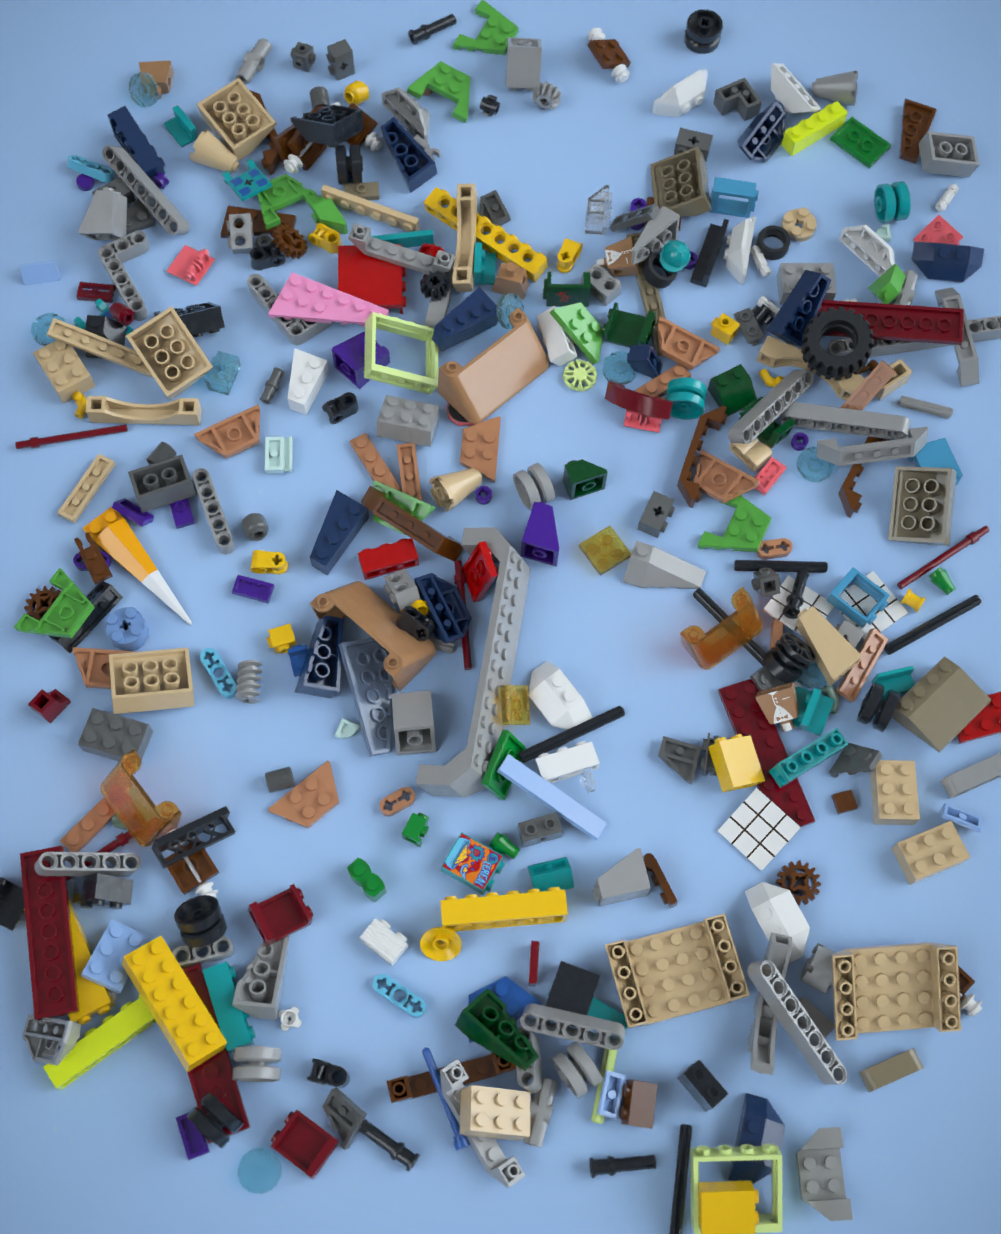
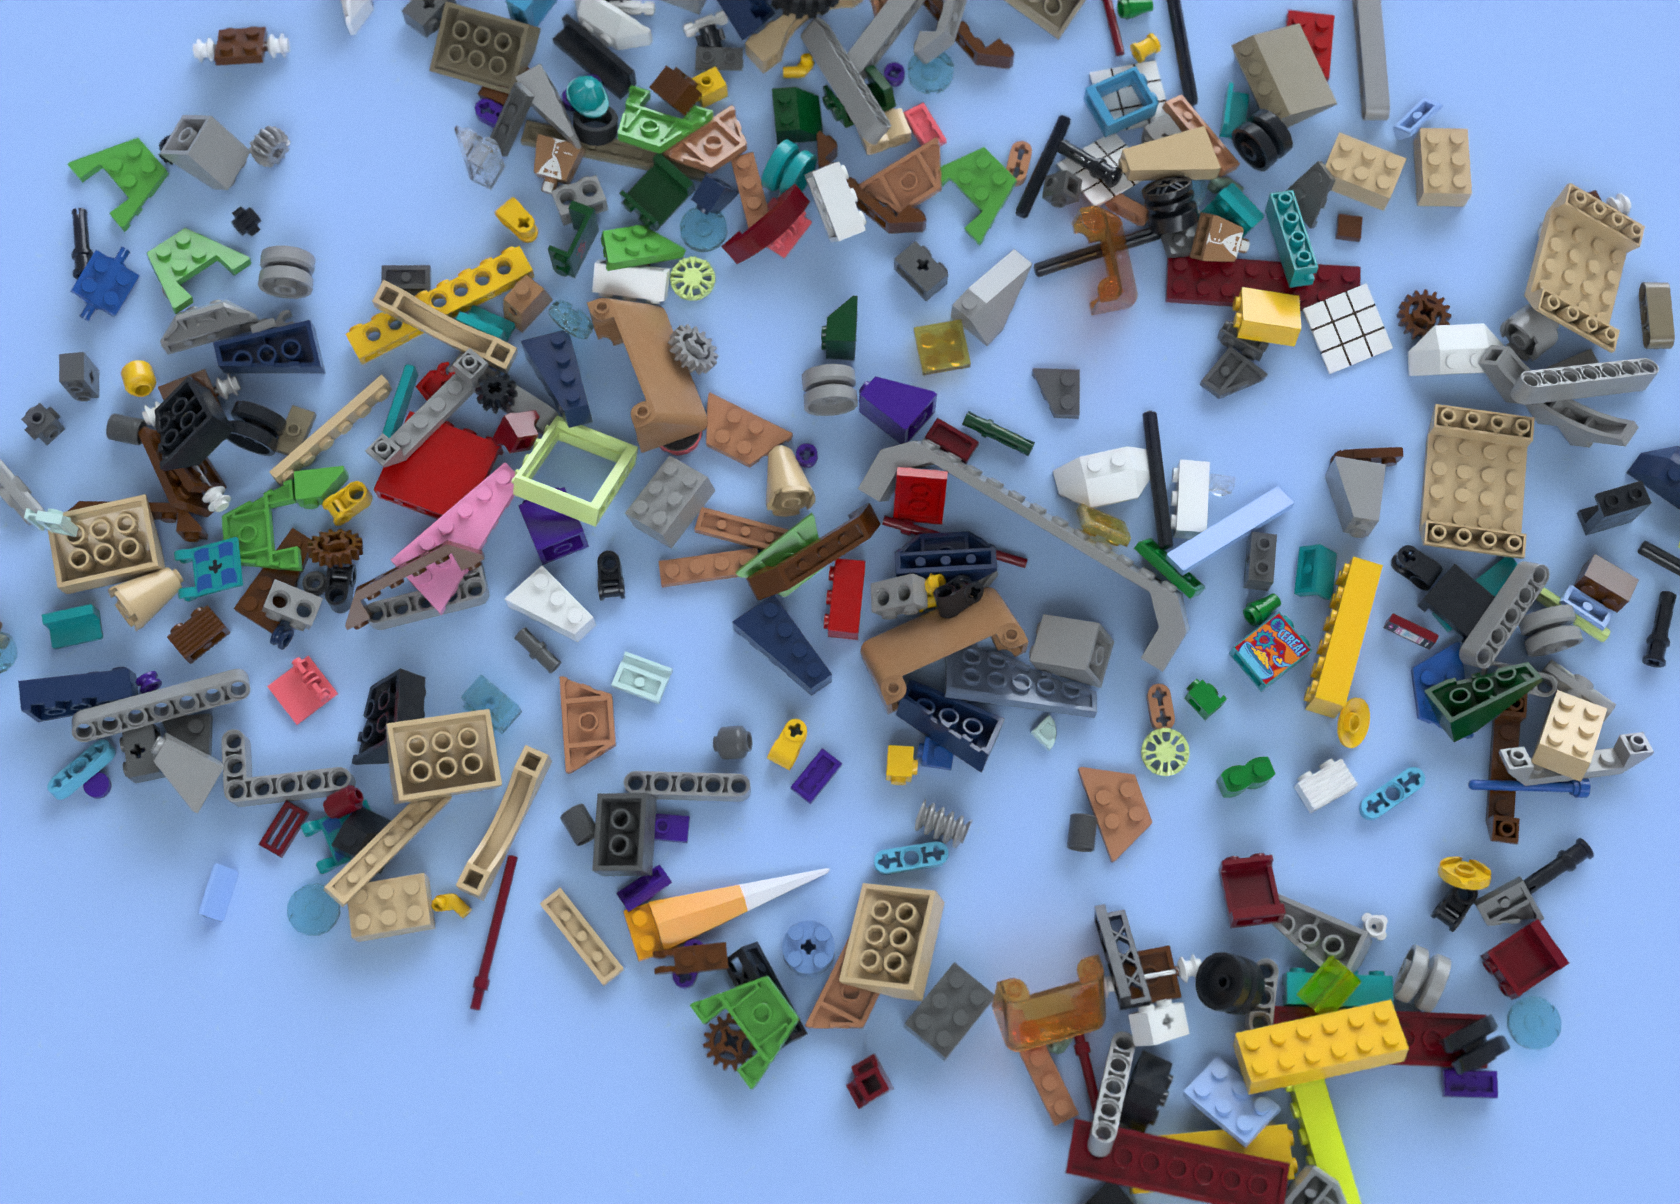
camera: 65 degrees left, 5 degrees up
(155, 891) = (1158, 1023): none -> white brick
(202, 193) = (198, 634): none -> reddish brown brick
(220, 238) = (281, 636): none -> dark blue bush
(221, 994) = (1329, 987): none -> clear neon green panel
(231, 77) = (51, 520): none -> light aqua plate
(307, 307) = (465, 556): none -> slope
(353, 1070) = (1463, 874): none -> yellow tile
(364, 816) = (1165, 751): none -> yellowish green wheel
(410, 49) = (104, 283): none -> blue plate
(413, 307) = (517, 431): none -> dark red brick
(463, 138) = (286, 272): none -> light grey wheel
(524, 391) = (693, 349): none -> light grey gear
(538, 584) = (952, 440): none -> dark red tile
(557, 604) = (998, 433): none -> dark green pin
(587, 953) = (1418, 568): none -> black piece
(611, 643) = (1060, 390): none -> dark grey wing
(672, 305) = (655, 129): none -> bright green wing
(674, 434) = (836, 201): none -> white brick
(709, 306) = (676, 89): none -> reddish brown brick

